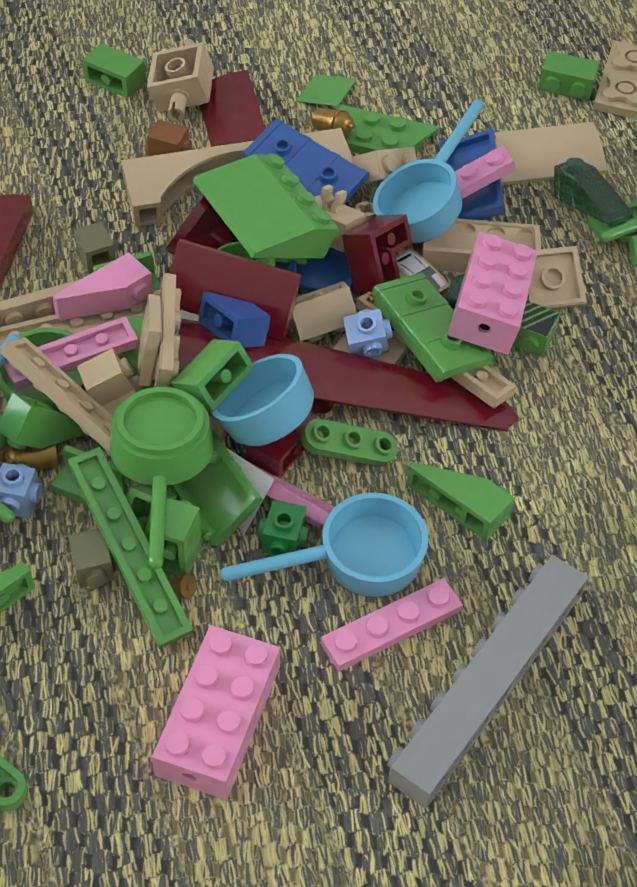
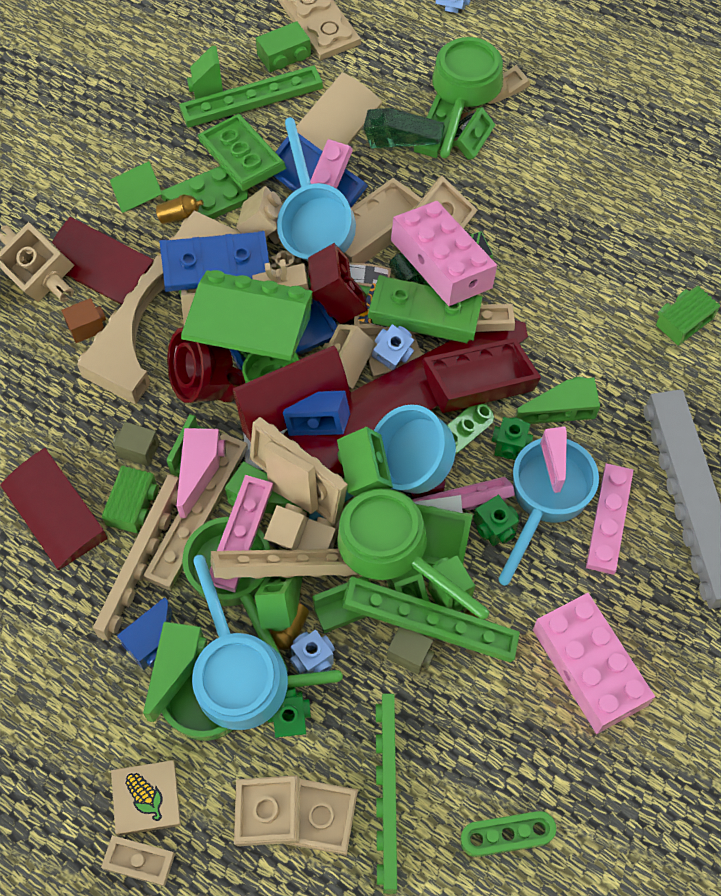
camera: 45 degrees left, 10 degrees up
(40, 273) = (130, 499): none -> bright green brick
(382, 477) = (511, 437): none -> green brick
(391, 512) = (554, 452): none -> bright pink slope
(416, 413) = (480, 374): none -> dark red slope
(432, 118) = (241, 152): none -> bright green tile
(475, 53) = (206, 75): none -> bright green slope
(498, 92) = (251, 96): none -> bright green plate

